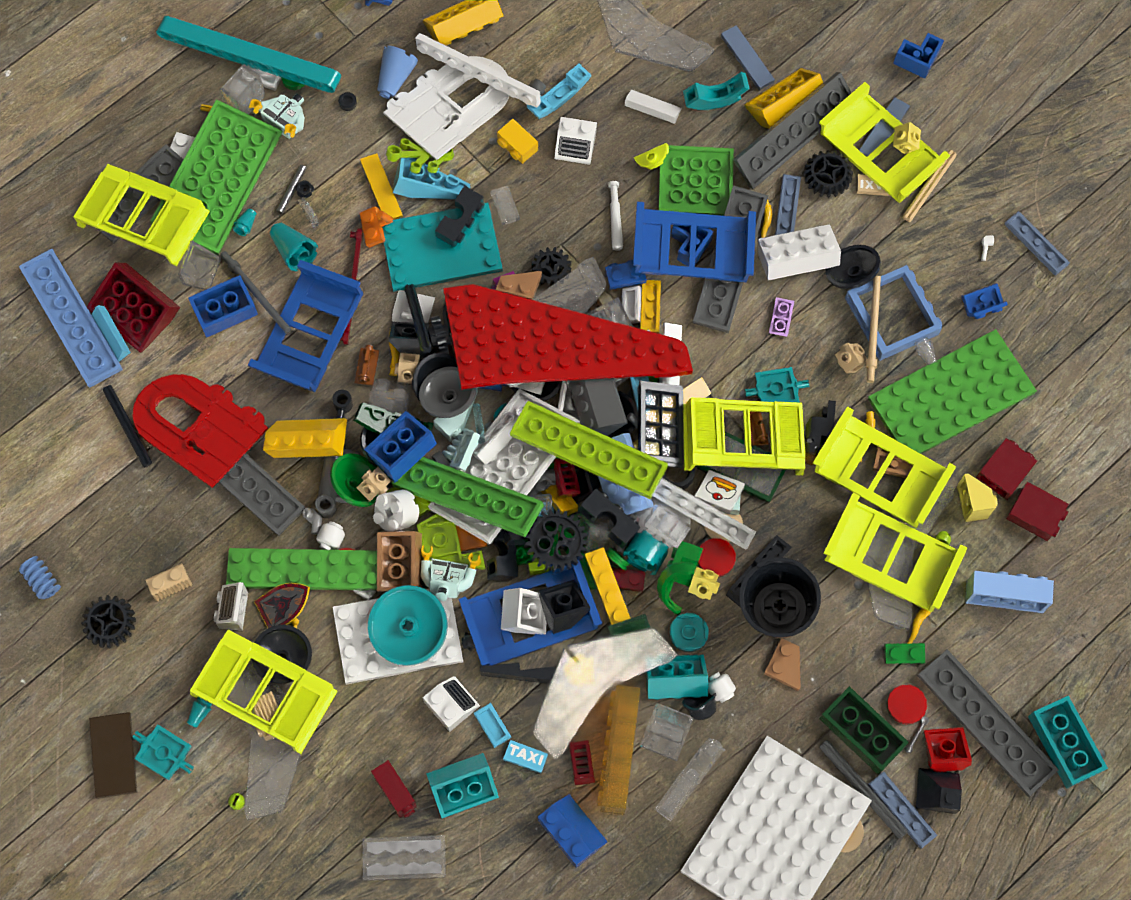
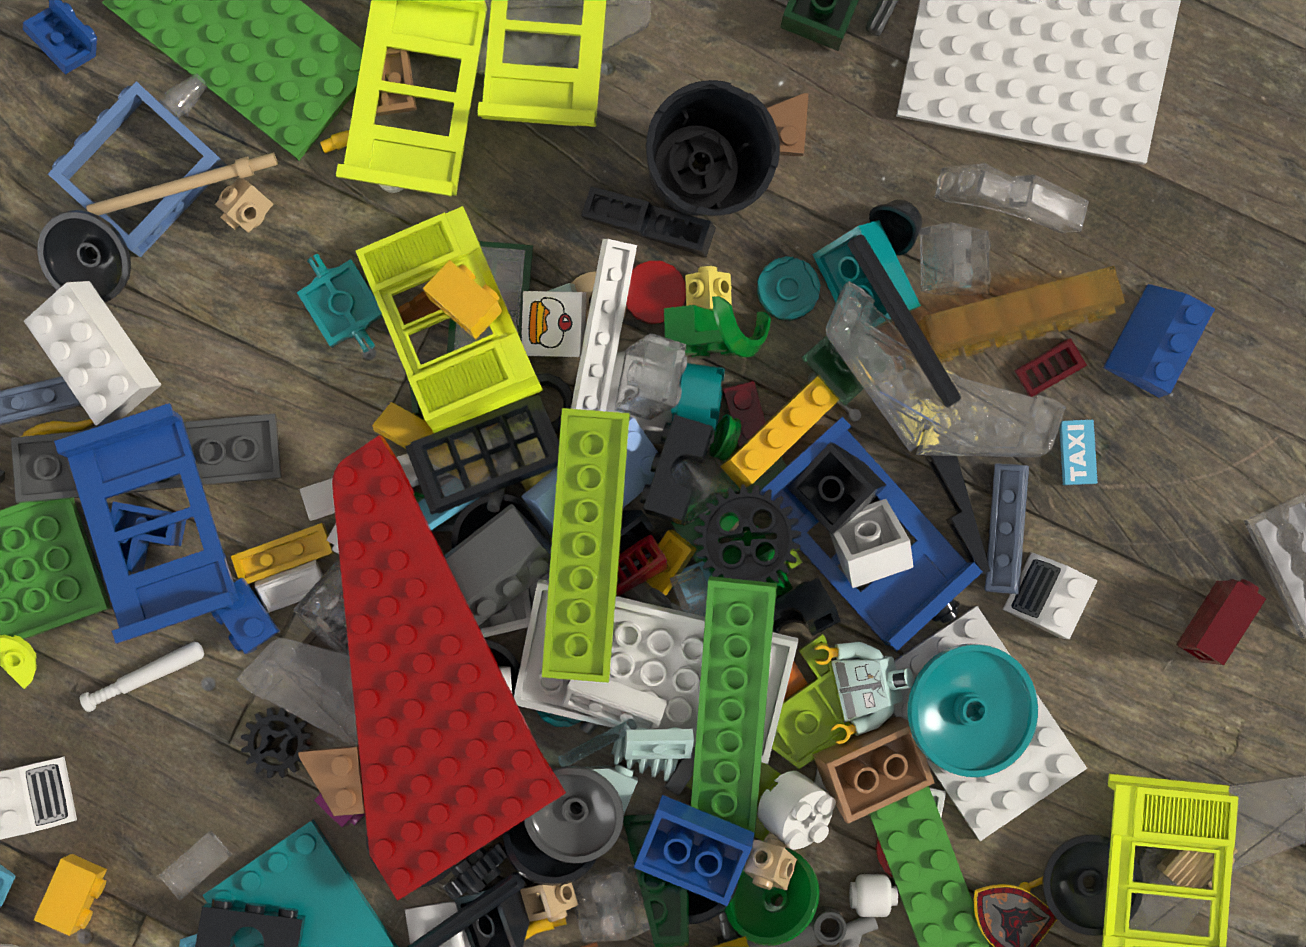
camera: 110 degrees left, 15 degrees up
(462, 785) = (1163, 527): teal slope -> none
(492, 725) = (1052, 521): medium azure tile -> none
(499, 696) = (1007, 528): none -> sand blue tile
(642, 675) = (904, 321): none -> black axle
(722, 686) = (855, 206): white head -> none
(750, 442) = (463, 299): none -> yellow brick
(781, 317) = (215, 342): lavender slope -> none
(817, 431) = (385, 212): black plate -> none

